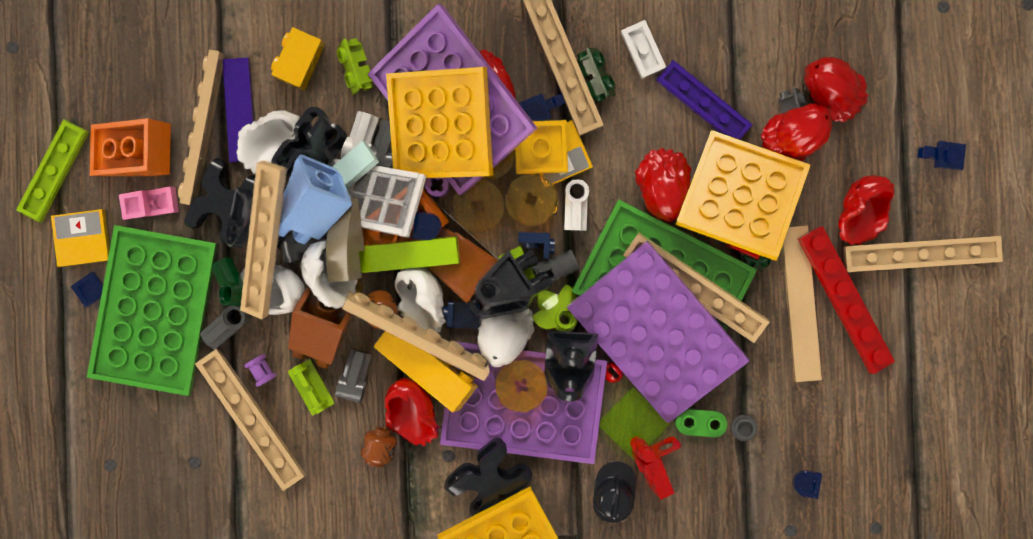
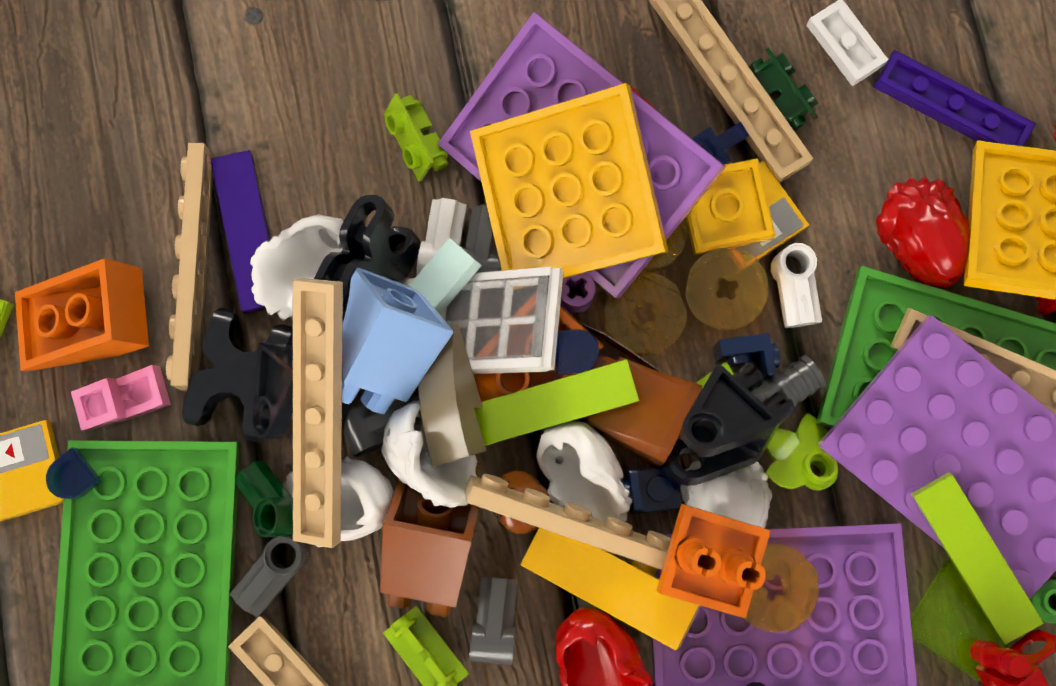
camera: 10 degrees left, 10 degrees down
(88, 289) = (37, 554): clear blue tile -> none
(113, 247) = (71, 476): none -> clear blue tile
(260, 370) = (338, 639): medium lavender bush -> none
(297, 58) = (326, 138): yellow brick -> none
(482, 365) = (714, 561): none -> orange plate
(570, 362) = (847, 532): black piece -> none
(609, 377) = (910, 549): red hinge -> none
(644, 389) = (977, 558): none -> lime tile

